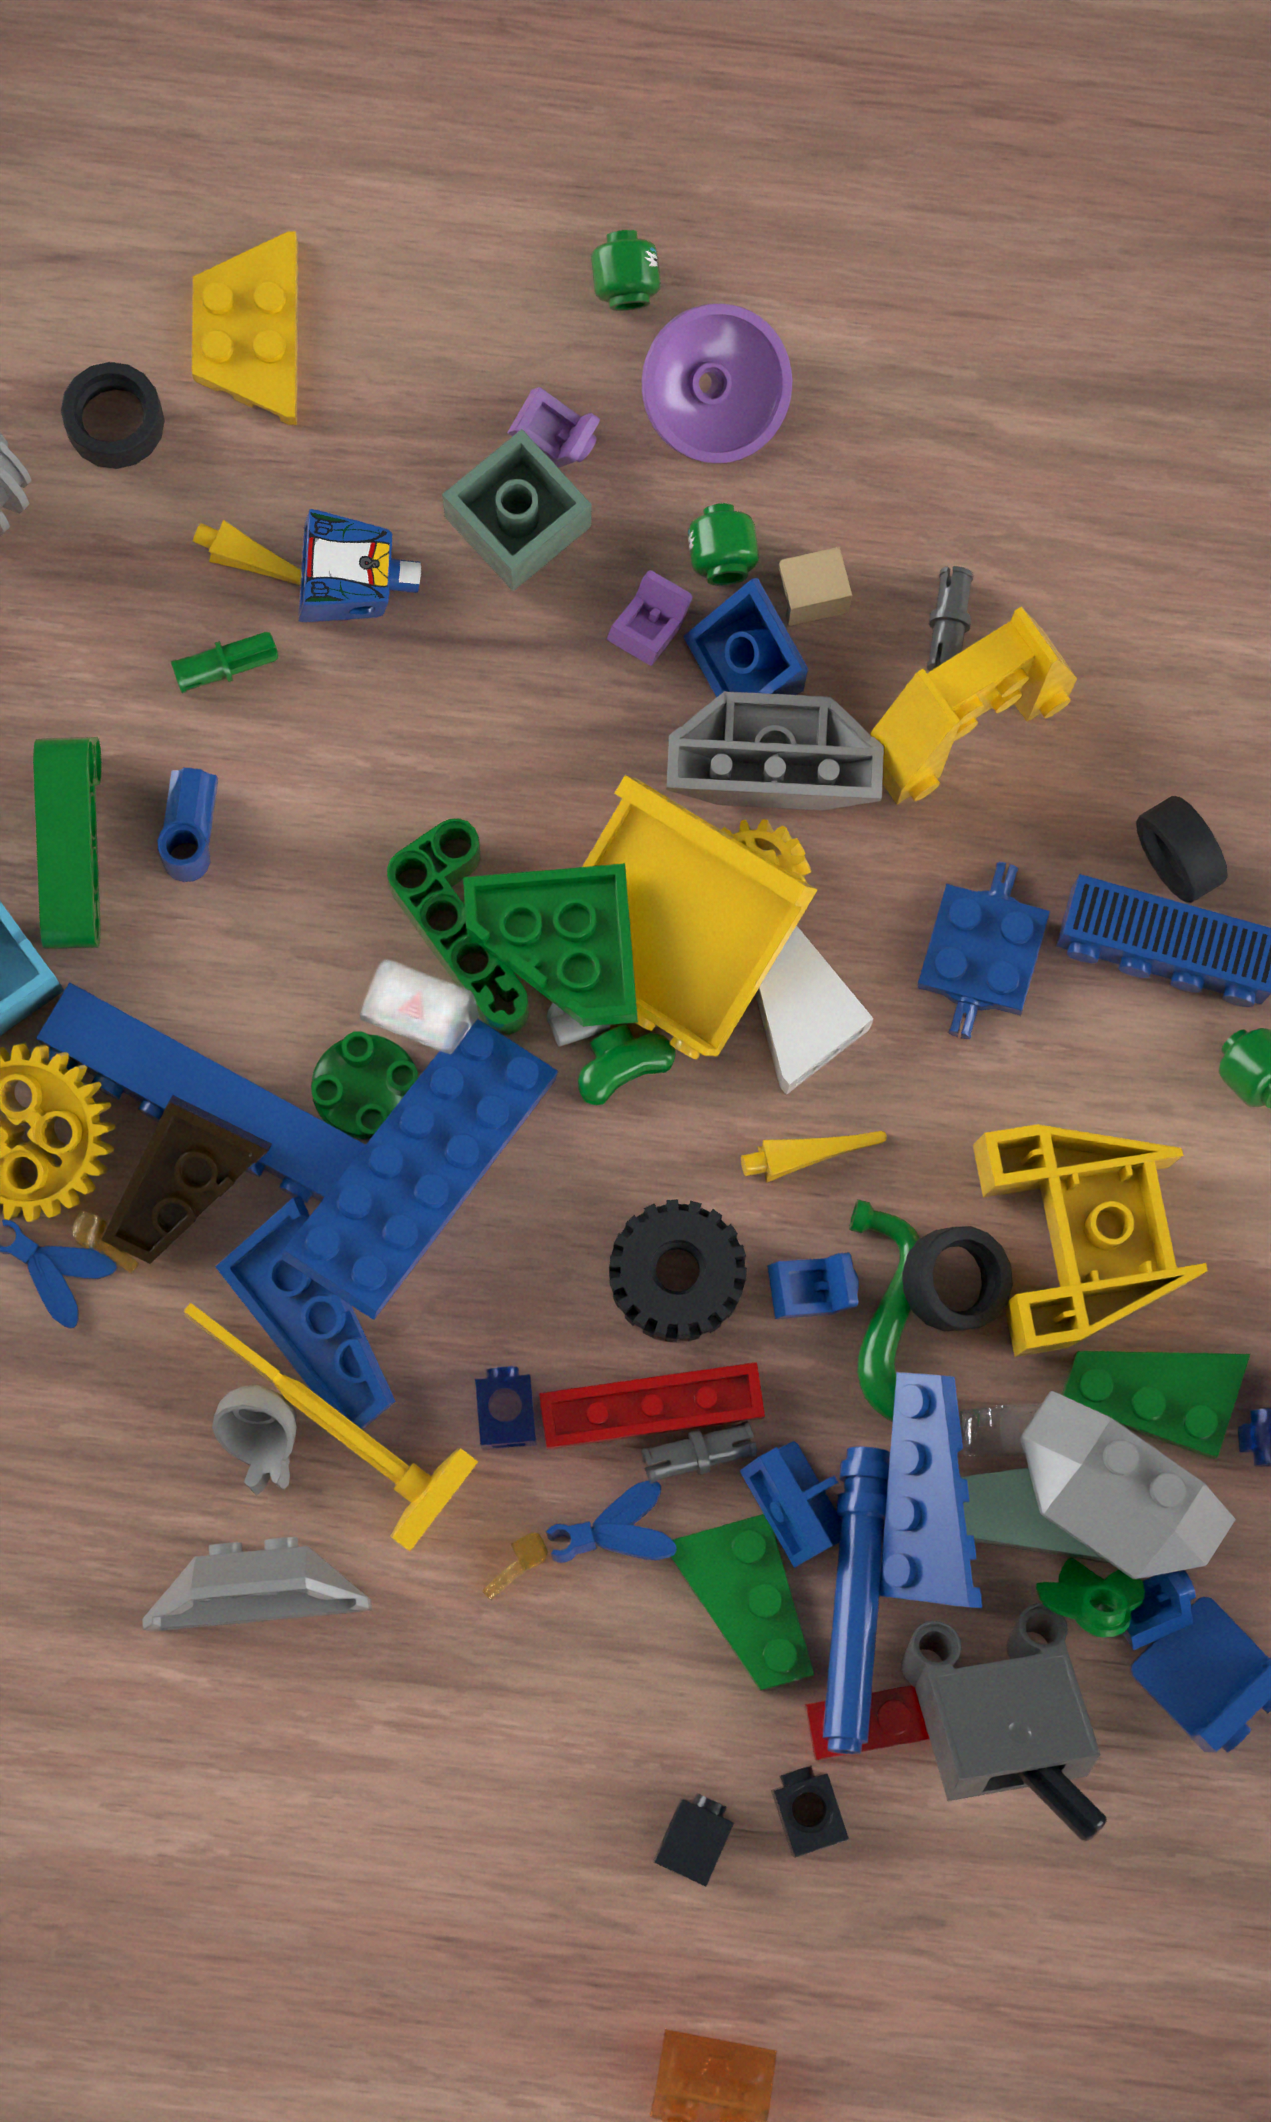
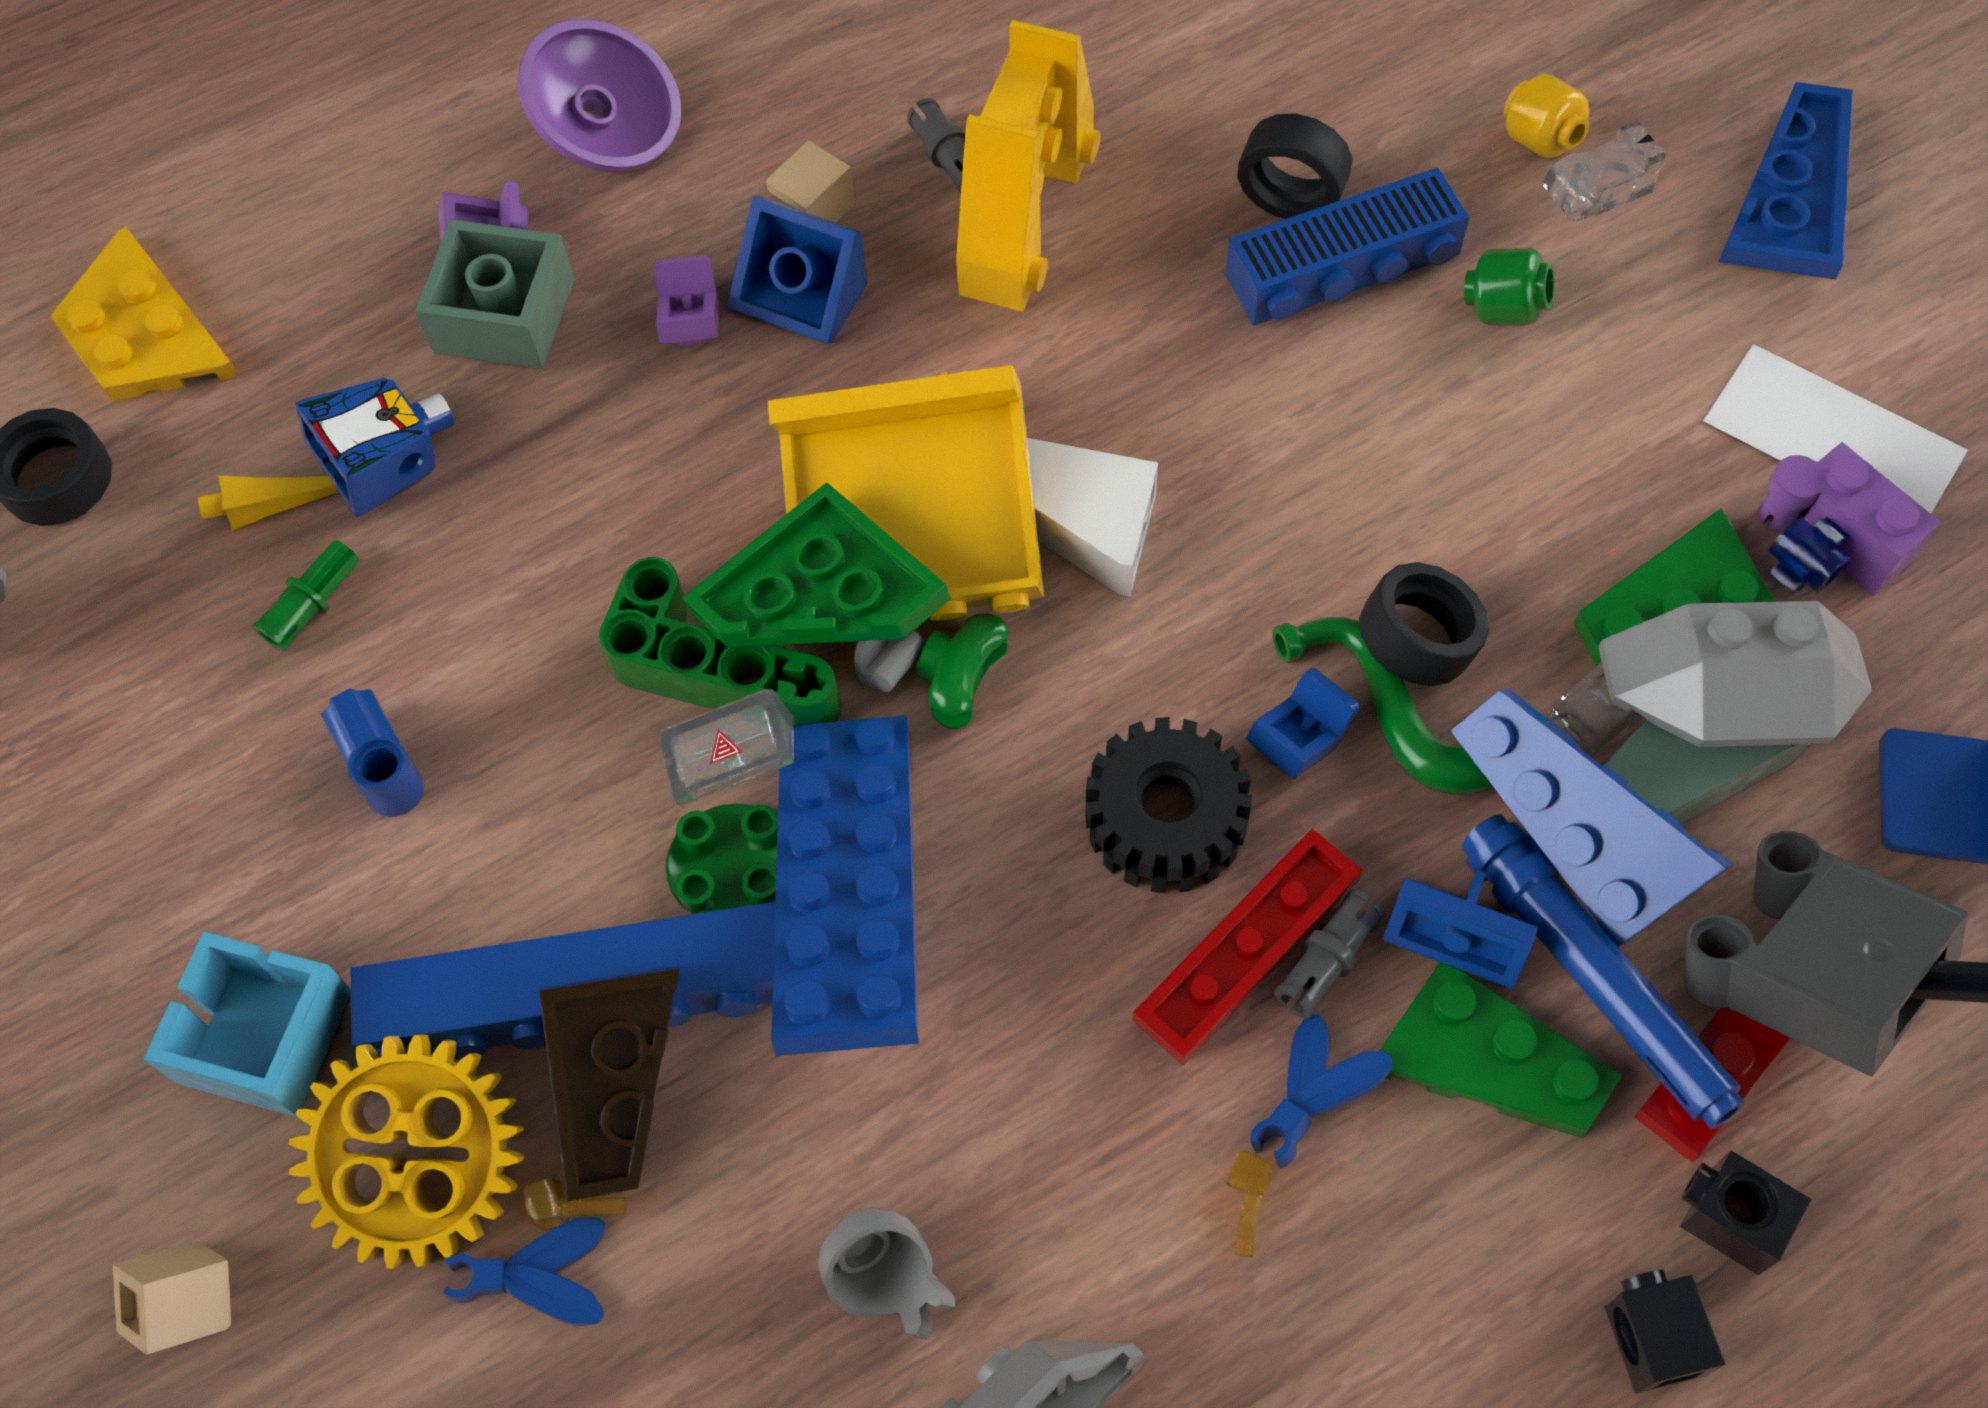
camera: 30 degrees left, 15 degrees down
(67, 840) = (255, 843): green beam -> none
(307, 1320) = (845, 1115): blue wing -> none
(424, 1492) = (837, 1191): yellow piece -> none
(508, 1434) = (1119, 1083): clear blue brick -> none
(625, 271) = (453, 76): green head -> none
(723, 545) = (705, 210): green head -> none
(775, 754) = (894, 318): light grey wedge -> none
(786, 1156) = (1179, 637): yellow piece -> none
(983, 950) = (1199, 363): blue plate -> none
(1095, 1603) = (1818, 795): green plate -> none
(1101, 1223) = (1502, 485): yellow wedge -> none
(1163, 1609) = (1856, 770): blue bracket -> none

